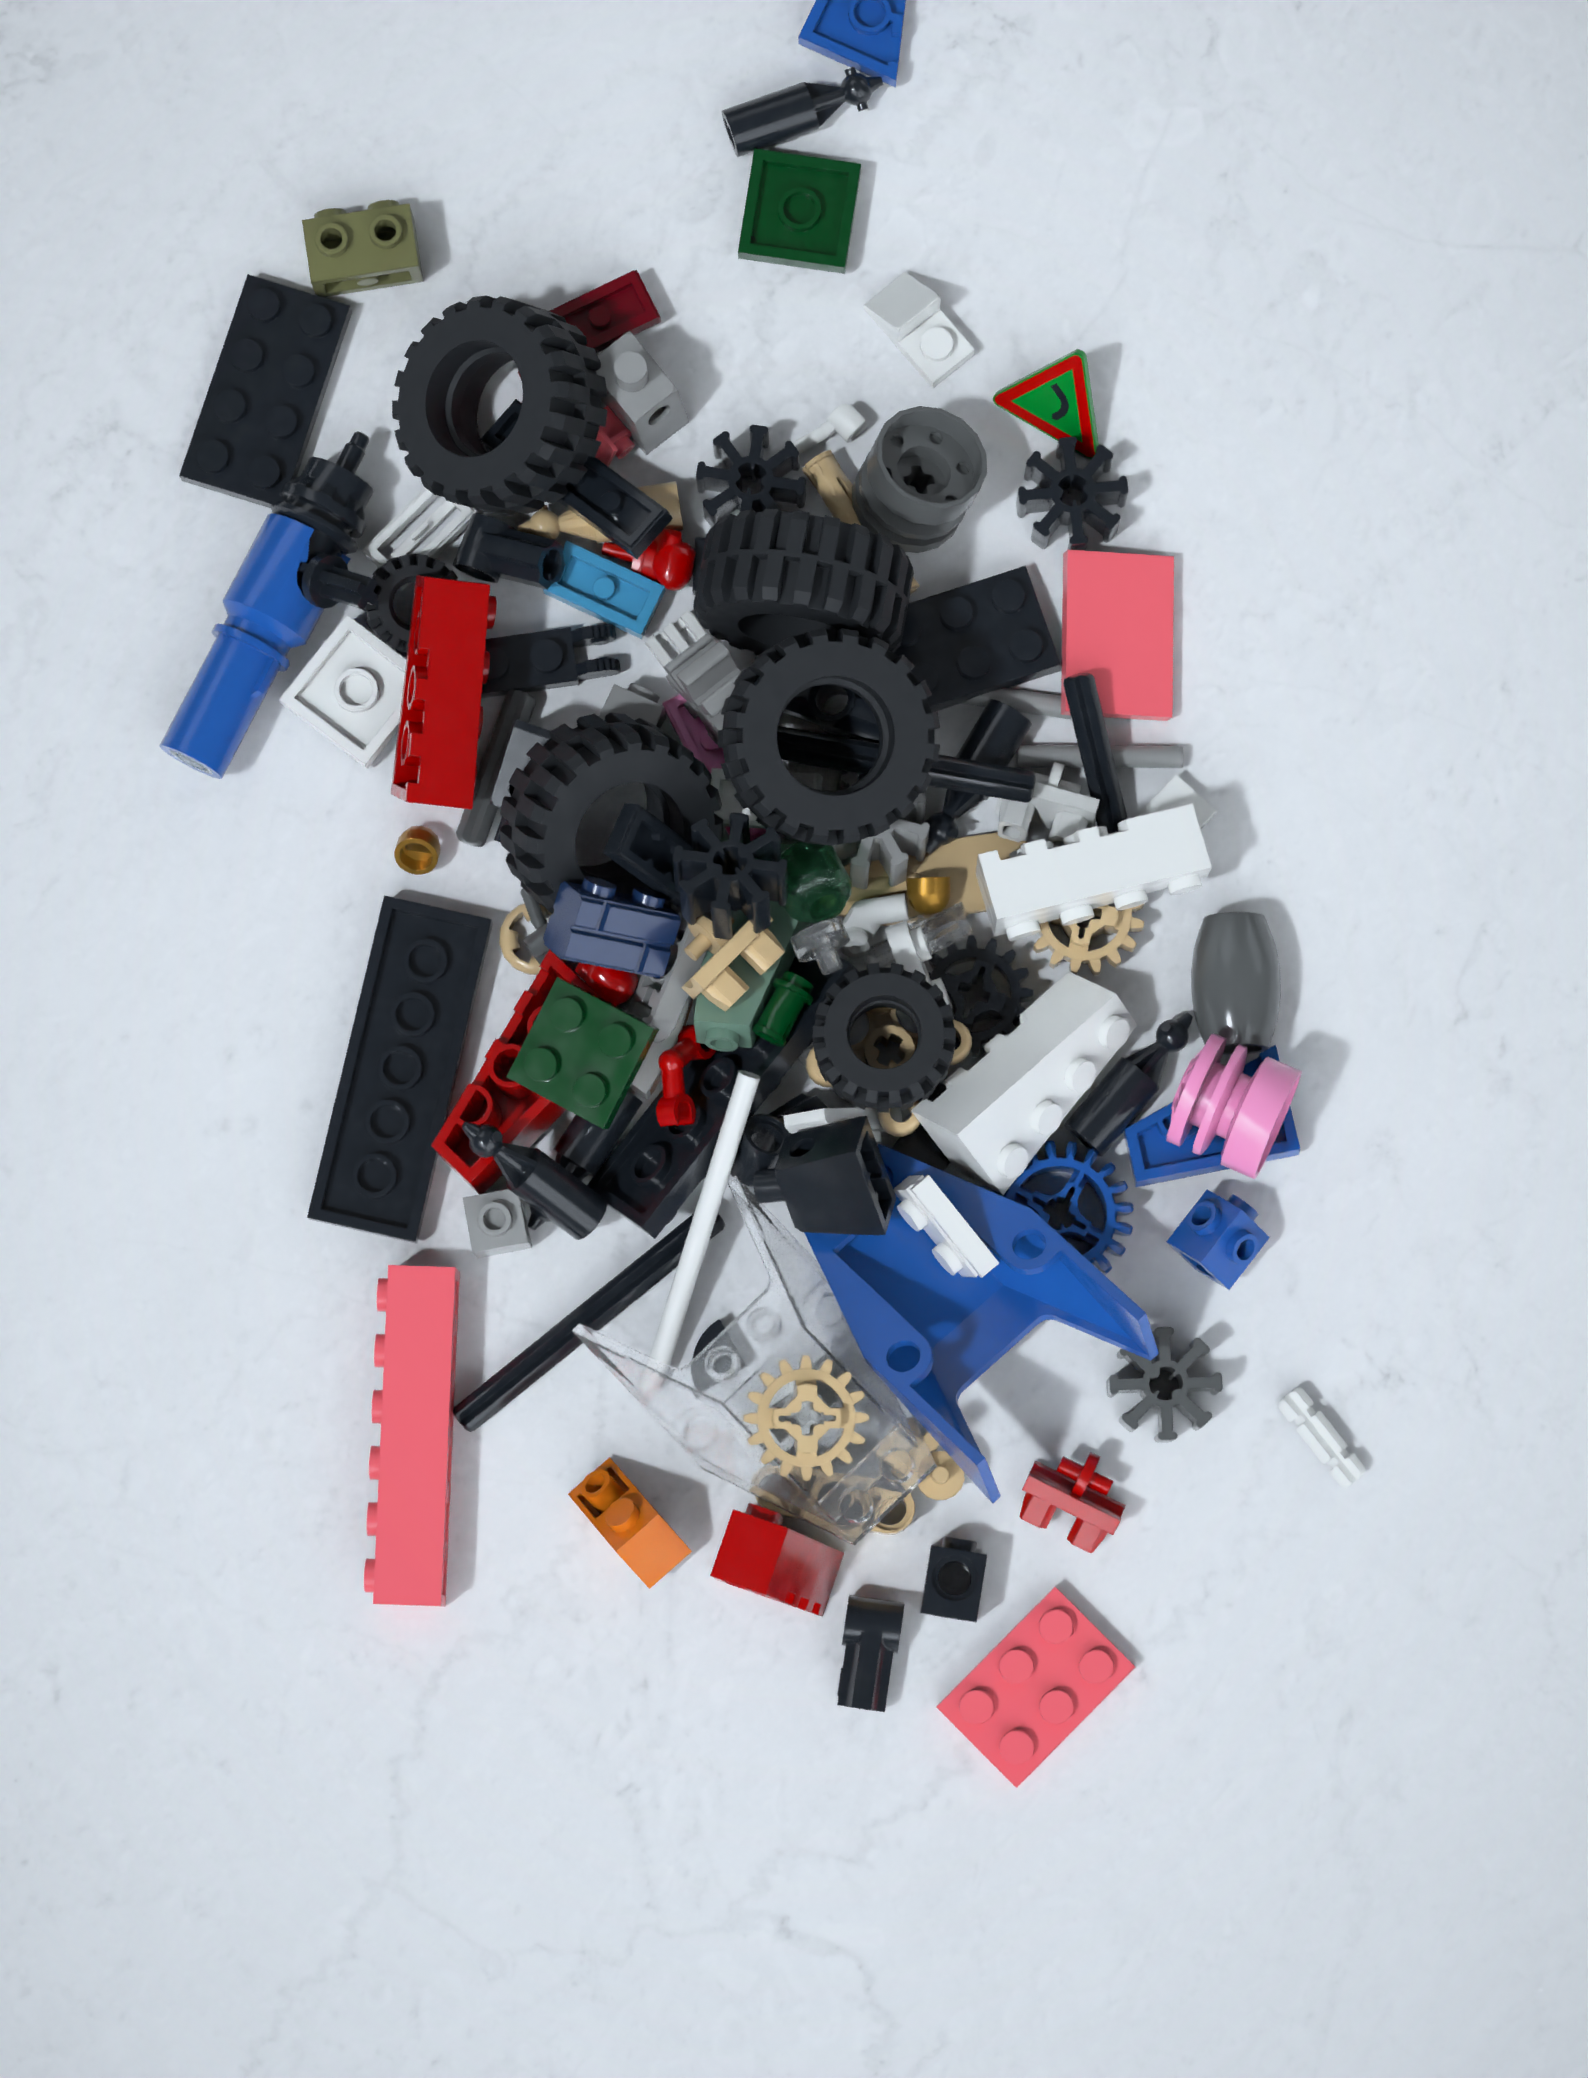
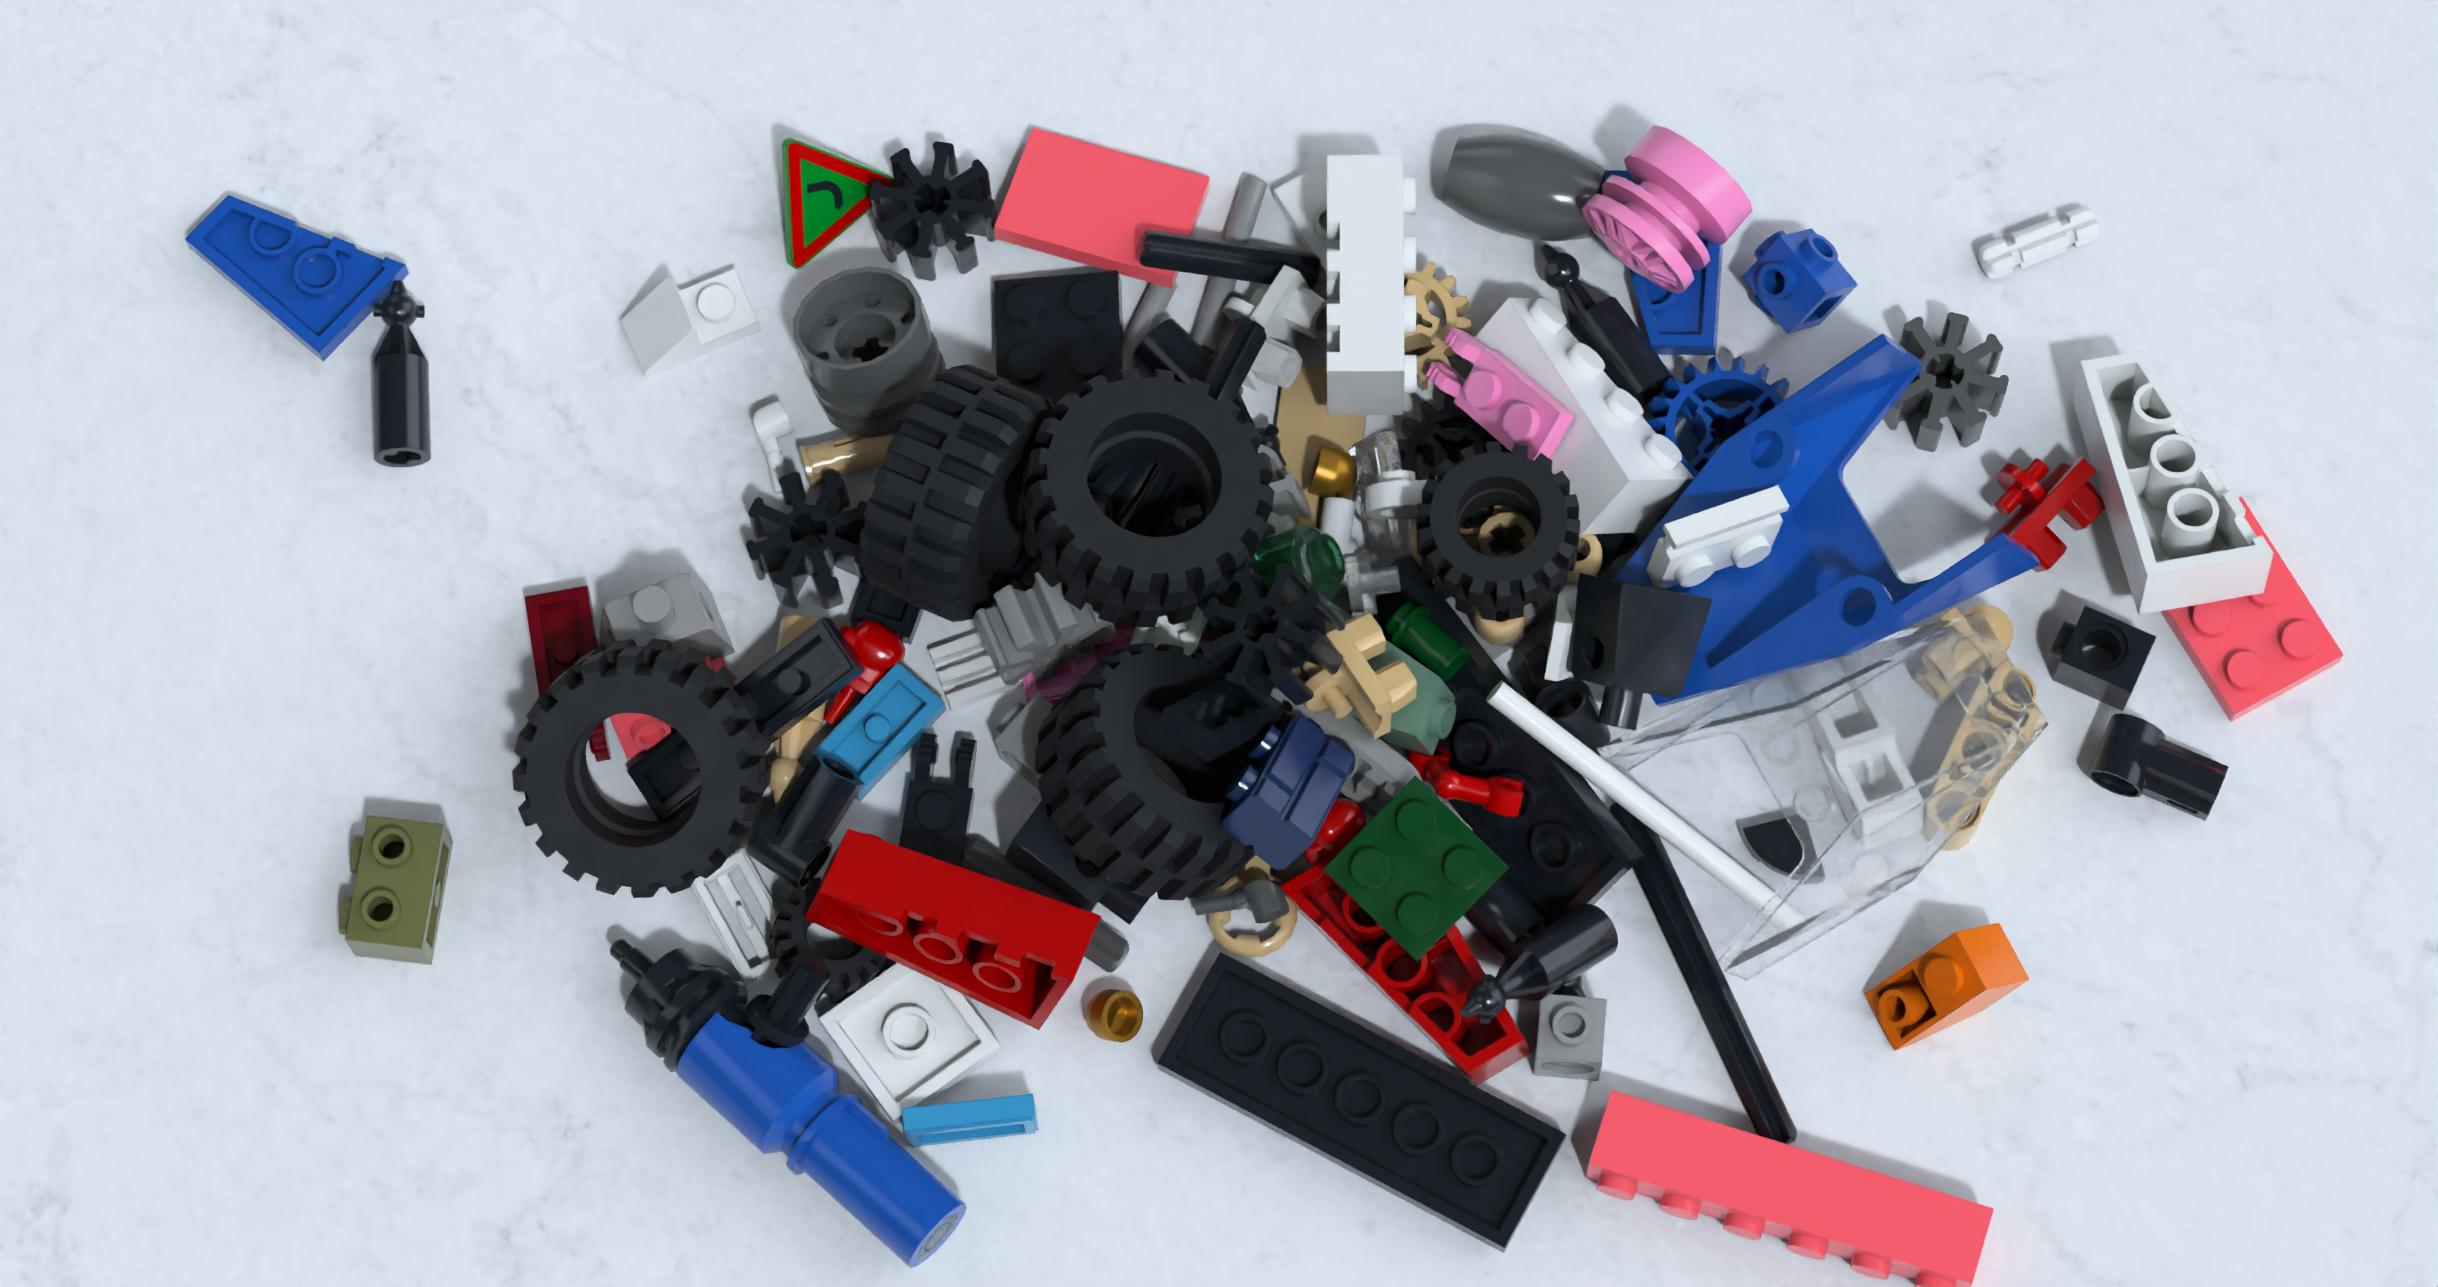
camera: 75 degrees left, 10 degrees down
(265, 391) = (526, 1048): black plate -> none
(297, 760) = (970, 1120): none -> dark azure tile
(776, 1560) = (2030, 831): red wedge -> none
(799, 211) = (516, 408): dark green plate -> none
(805, 1444) = (1878, 718): tan gear -> none
(1022, 1011) = (1502, 397): none -> bright pink hinge
(1091, 1604) = (2166, 506): none -> white wedge

